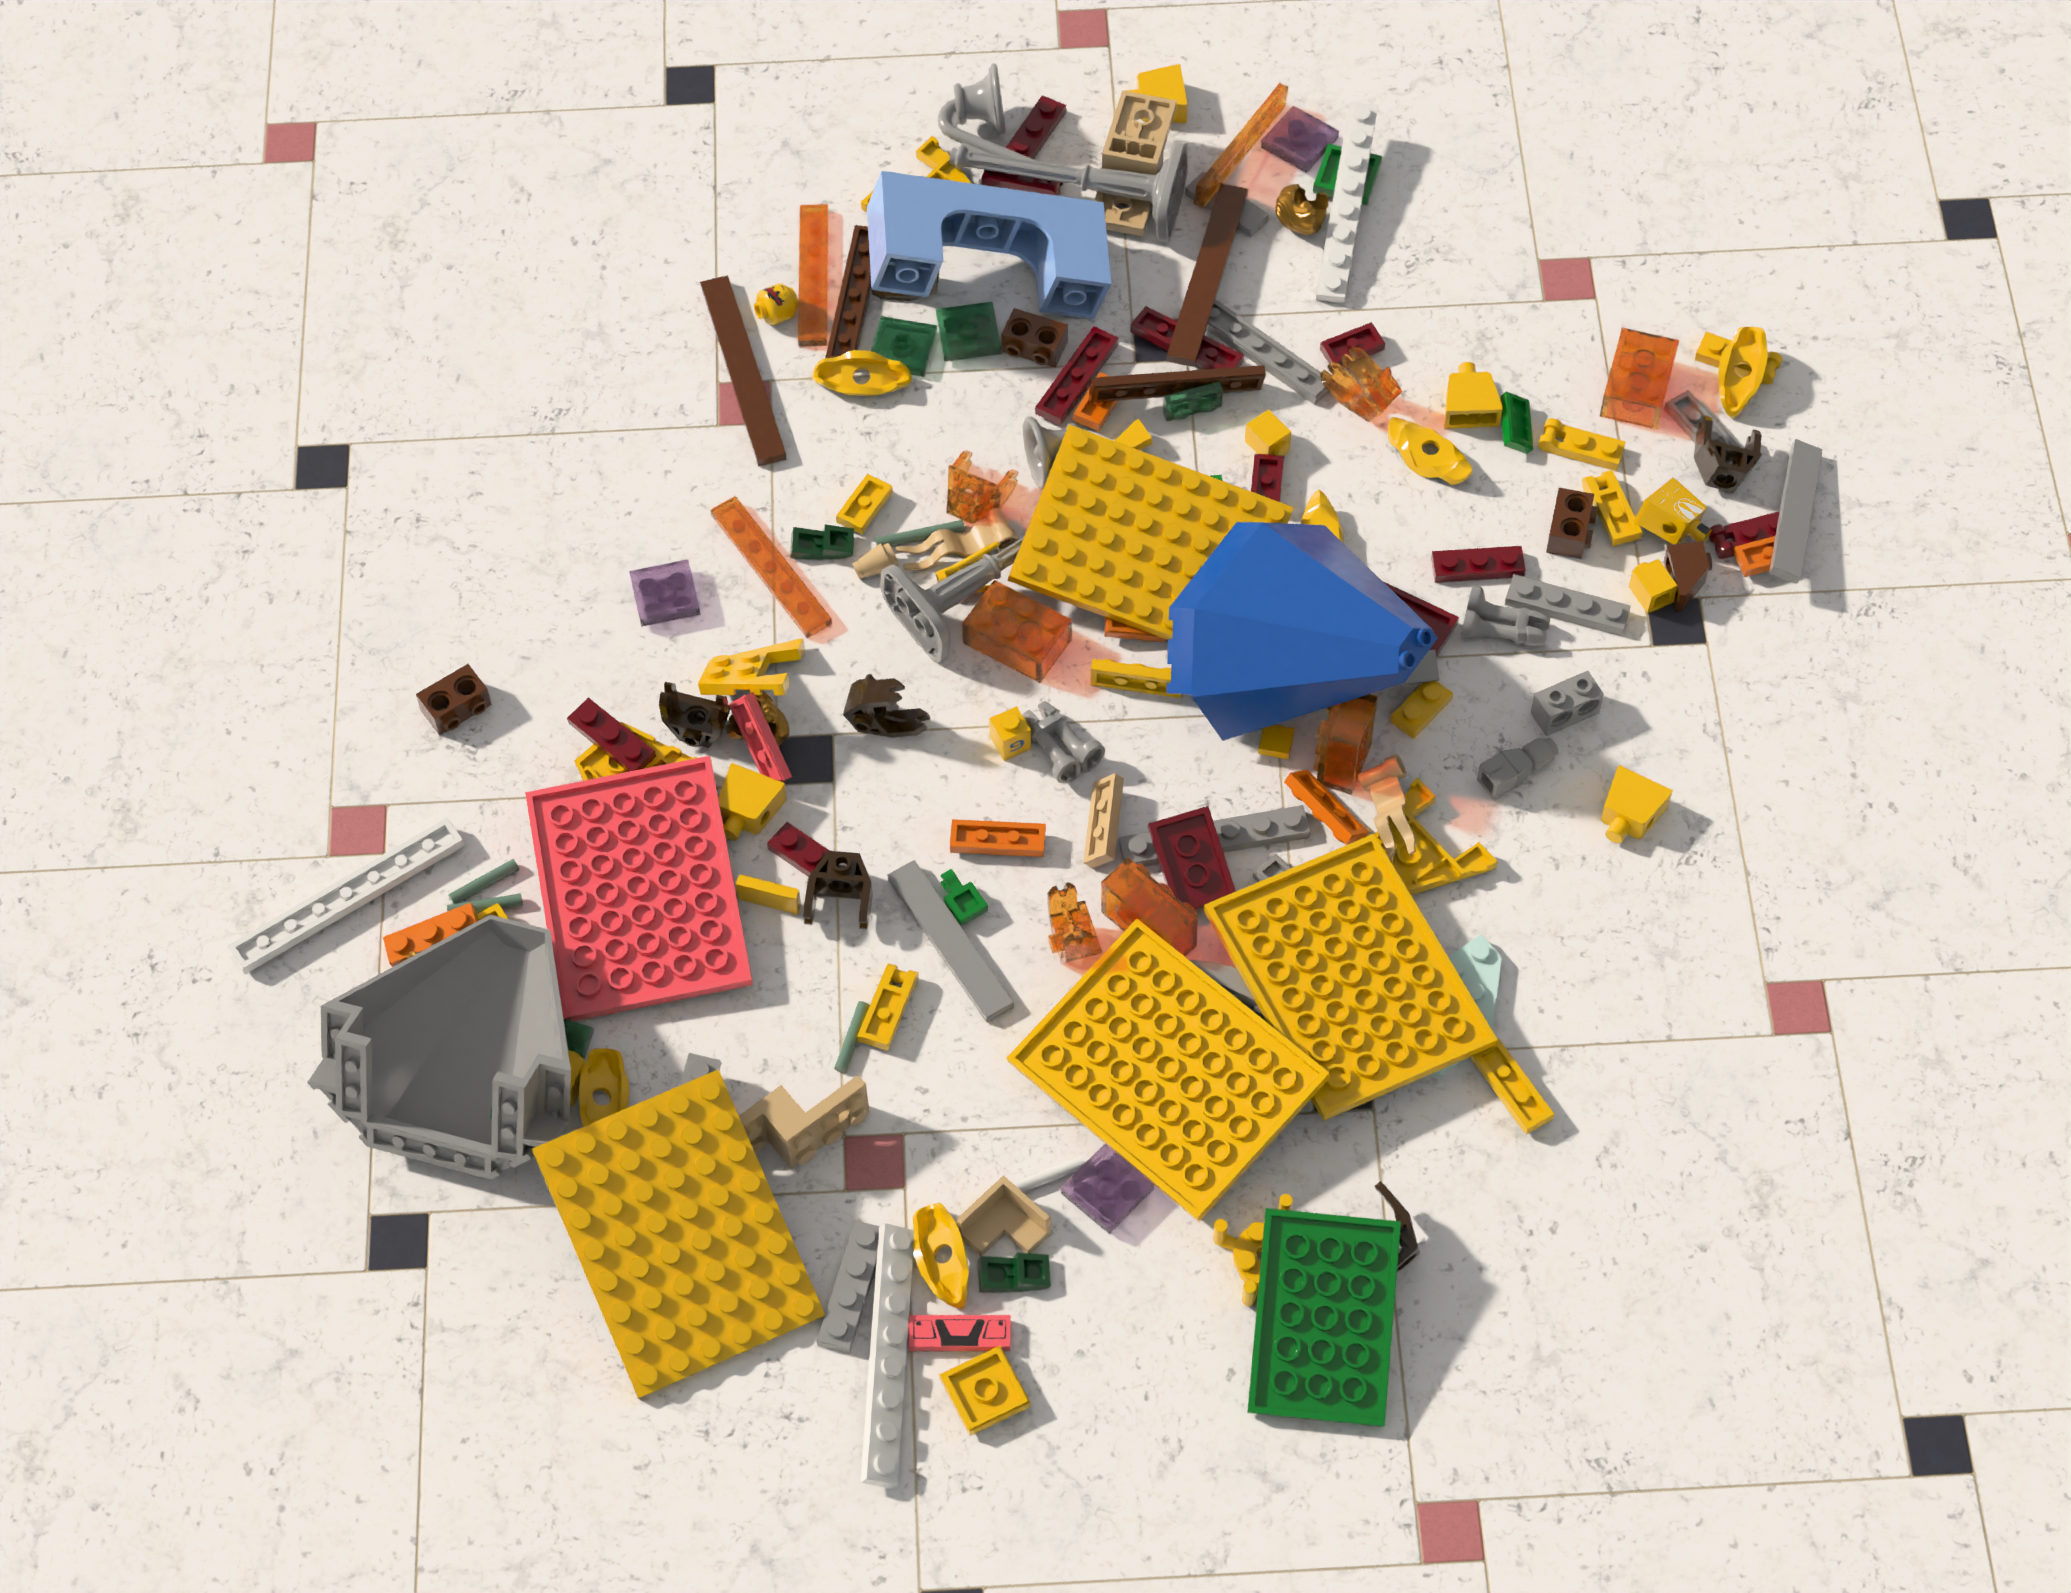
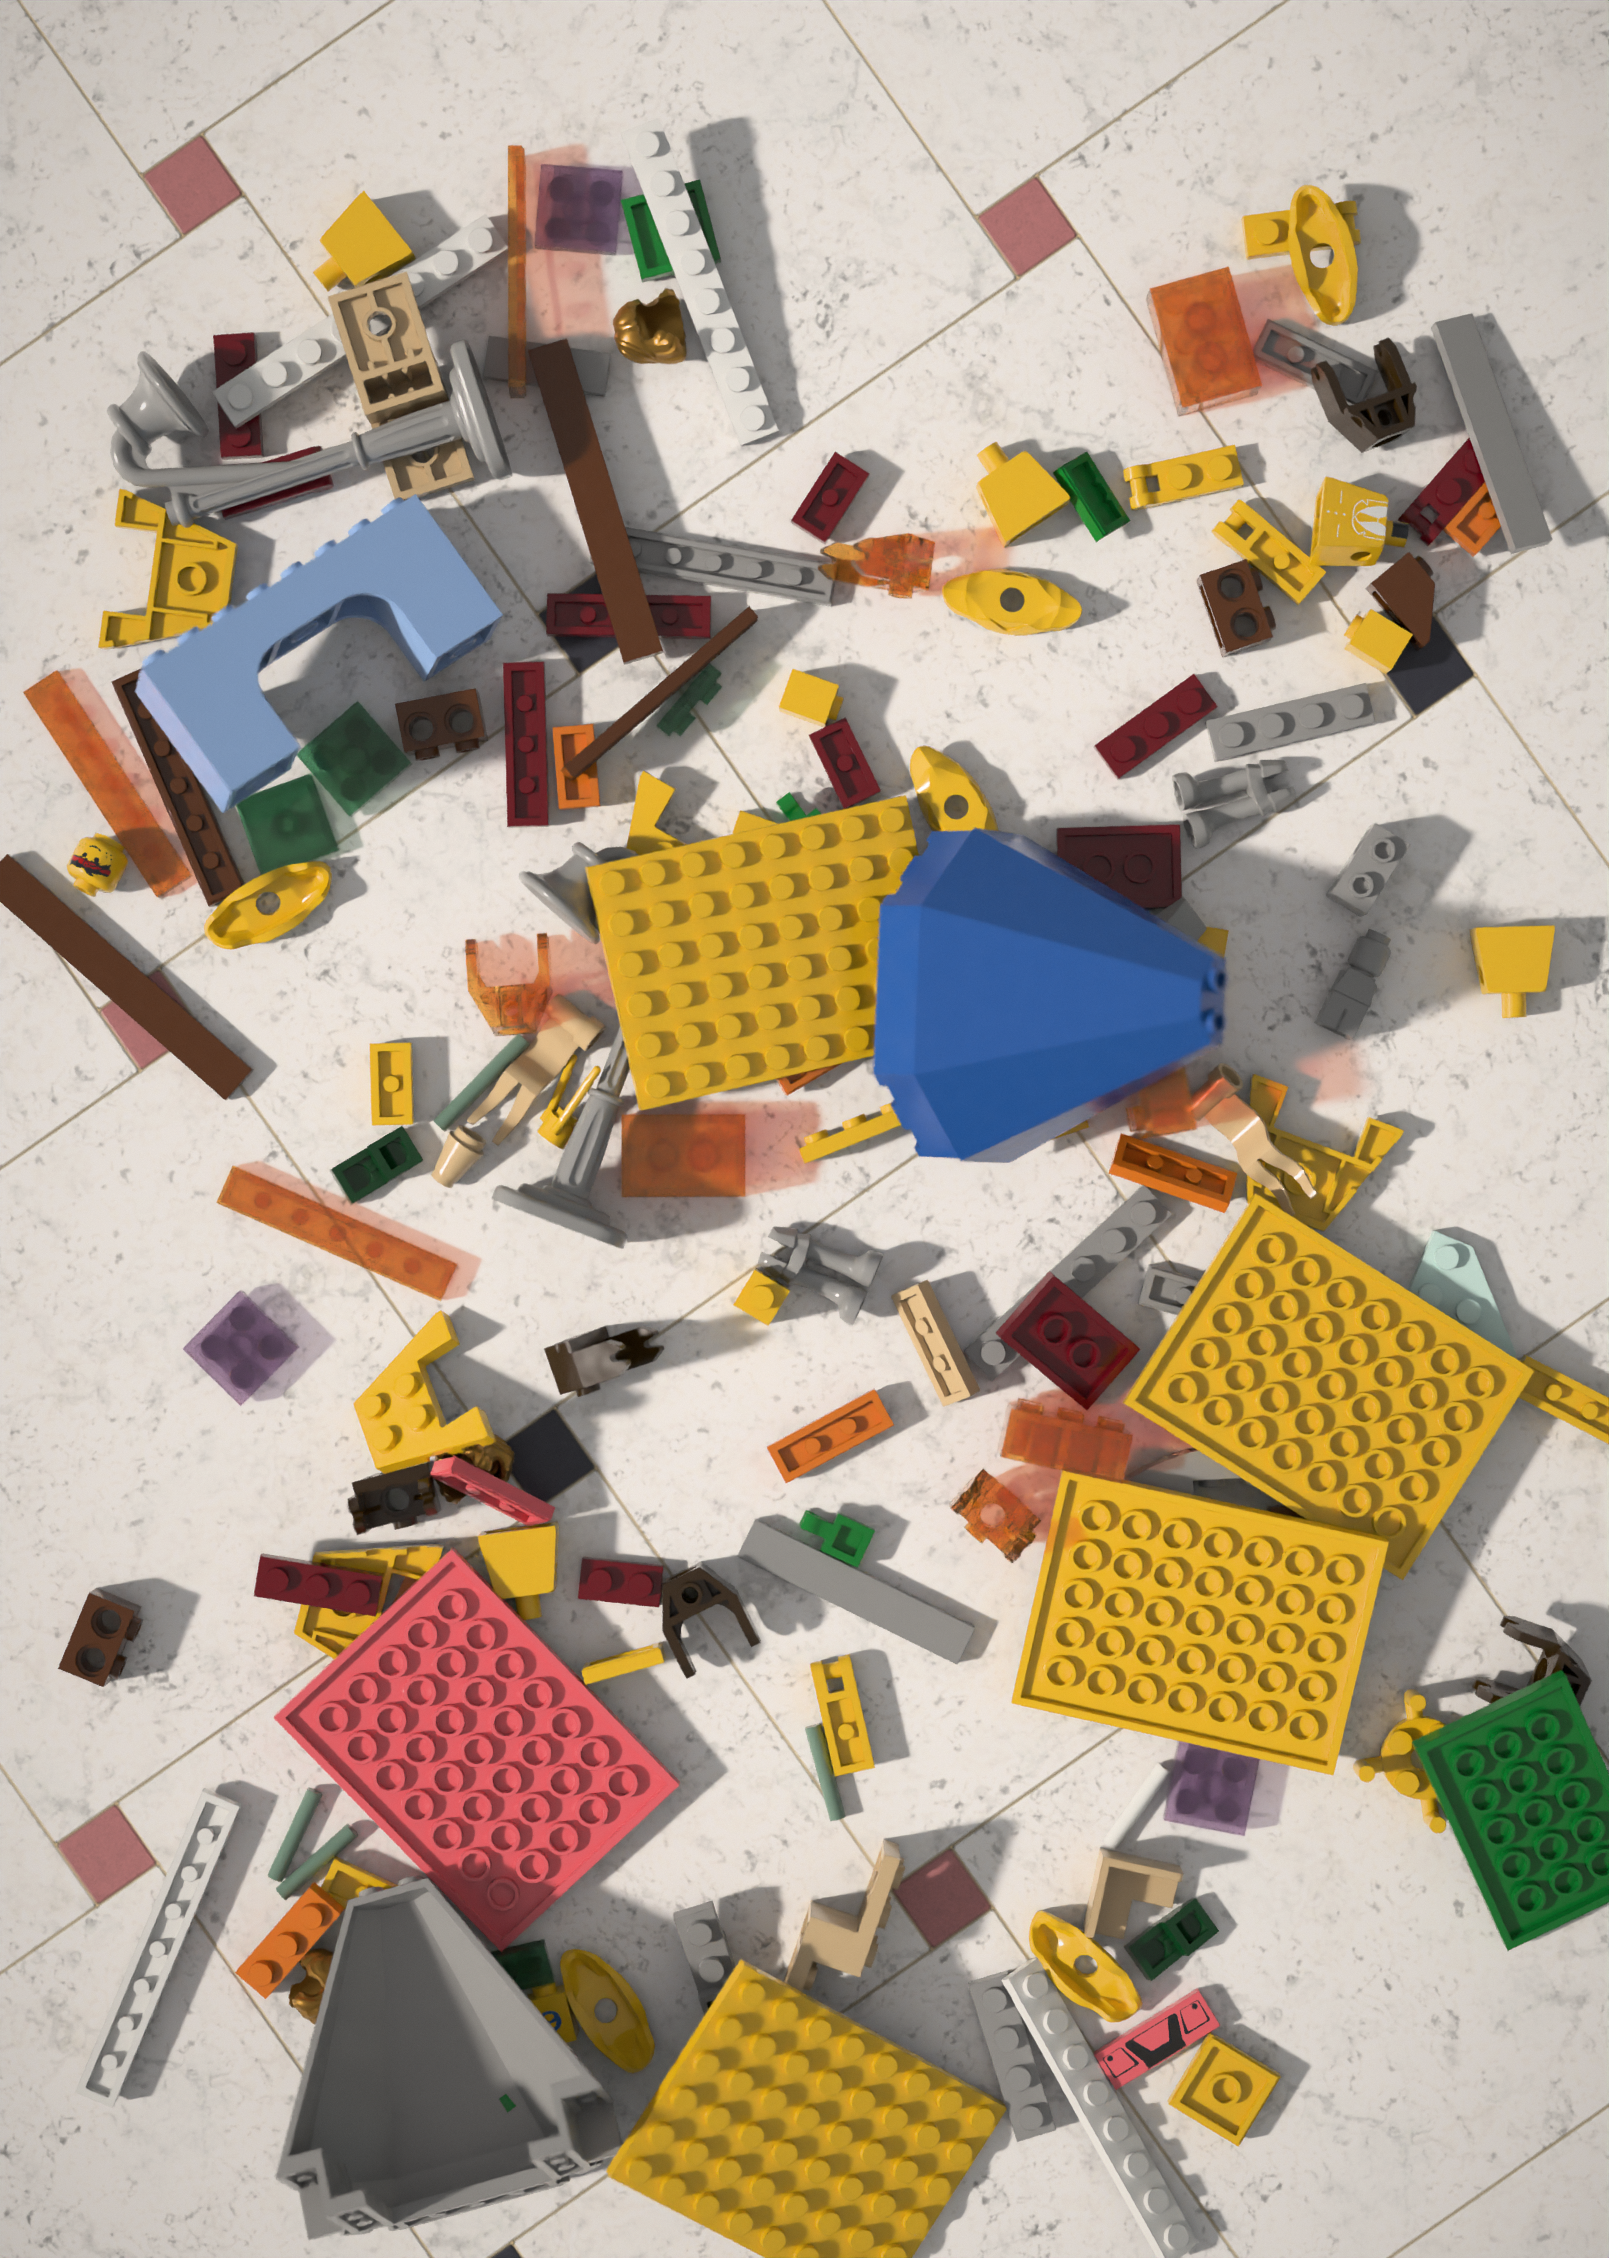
camera: 35 degrees left, 30 degrees up
(1096, 126) = (321, 344): none -> white plate

